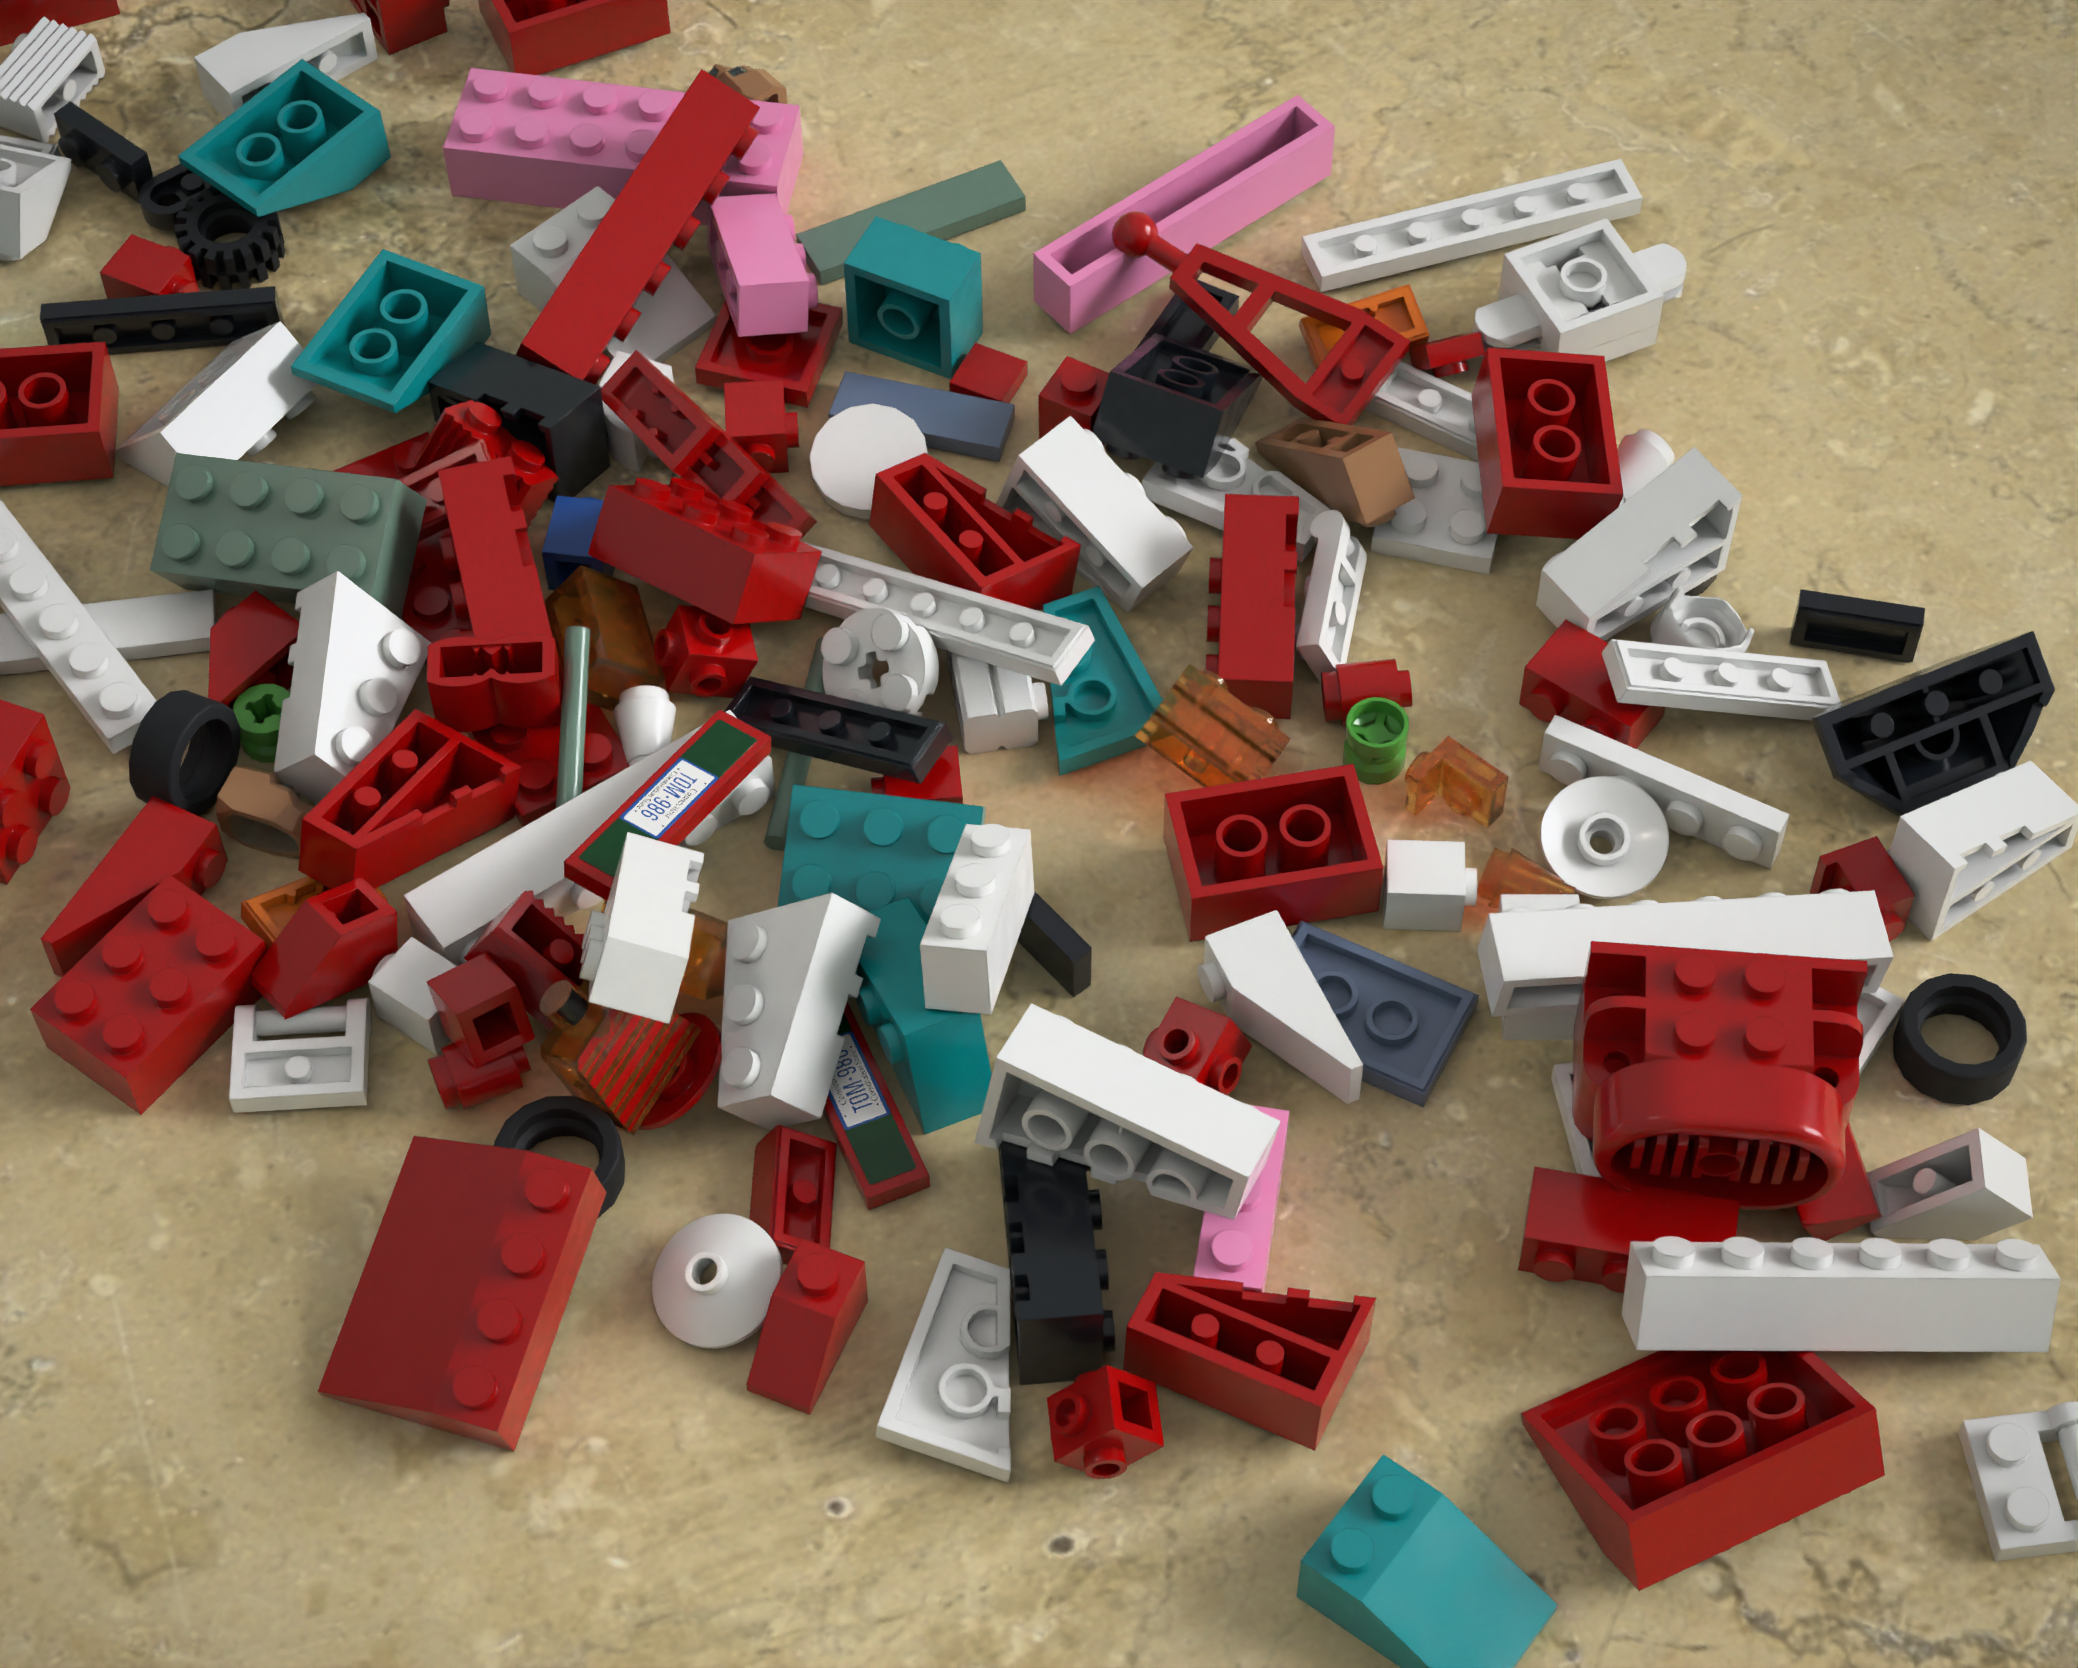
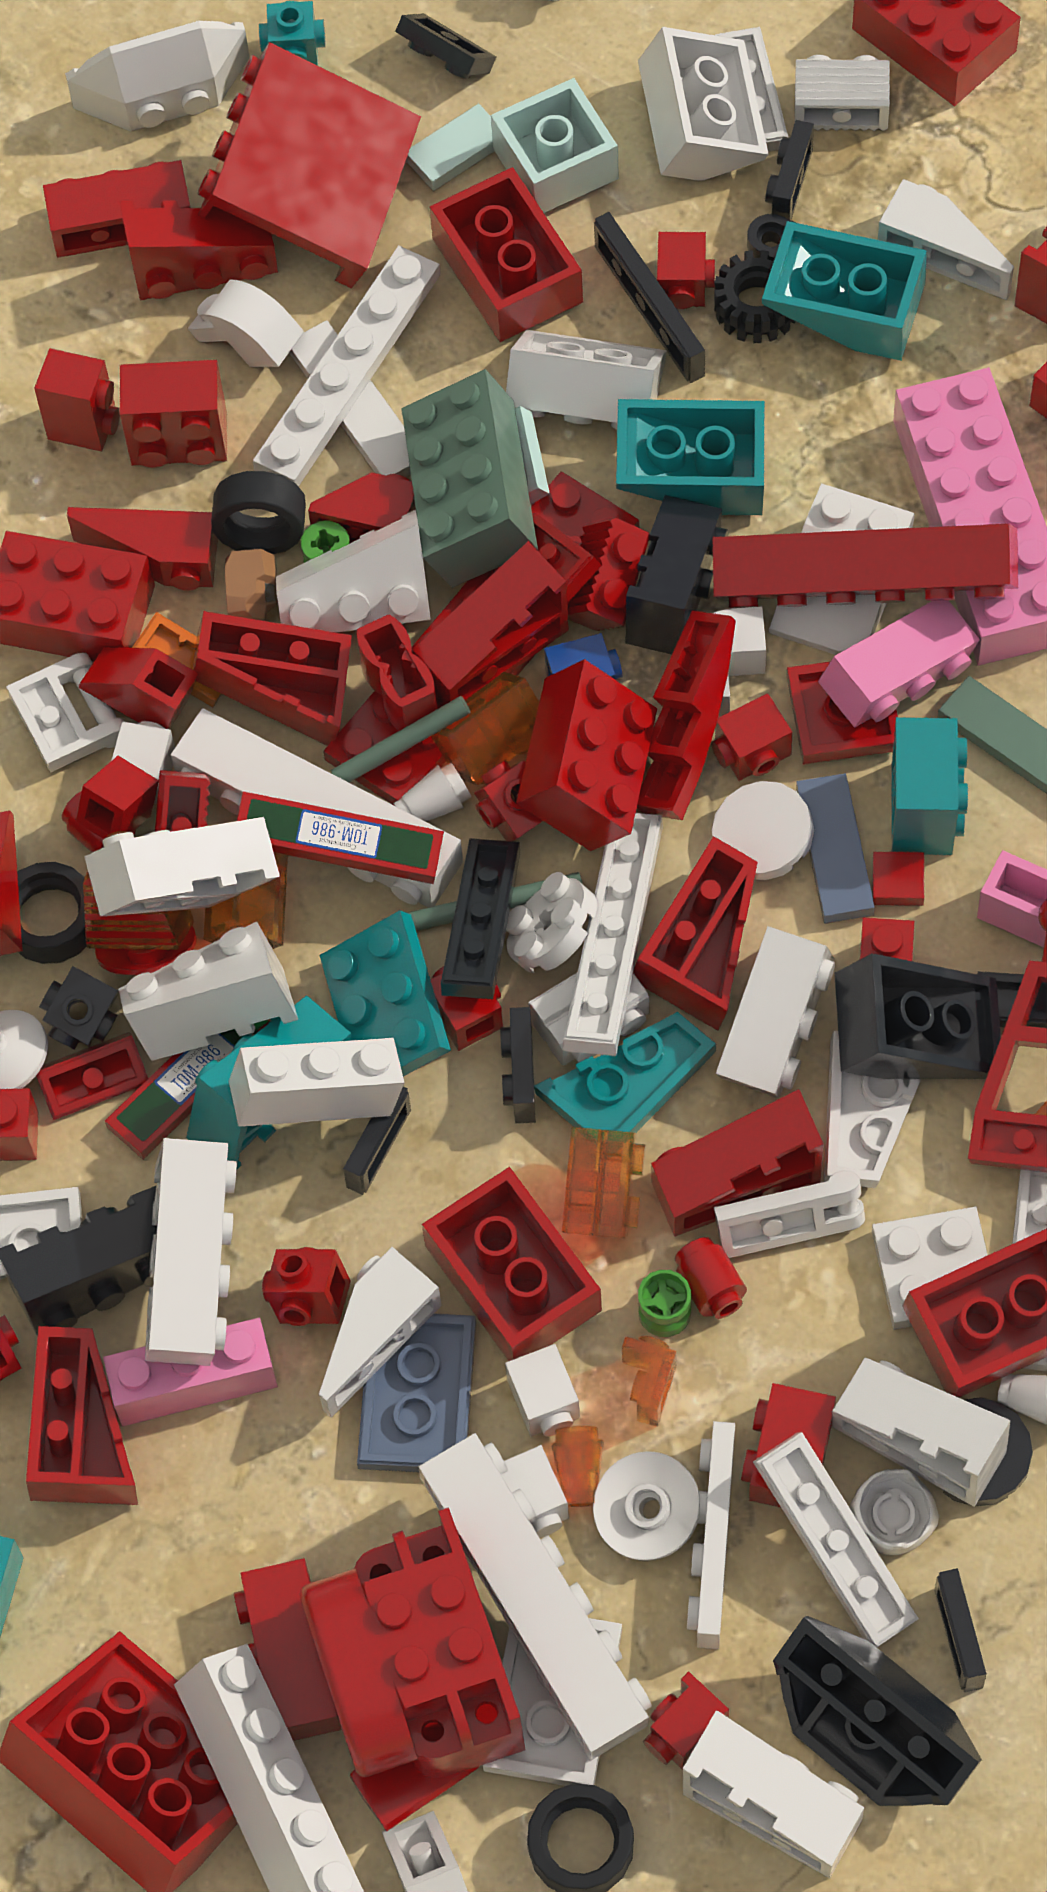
camera: 70 degrees right, 10 degrees up
(713, 1162) = (85, 989): none -> black brick
(1026, 766) = (518, 1045): none -> black plate
(1342, 467) = (915, 1168): medium nougat slope -> none

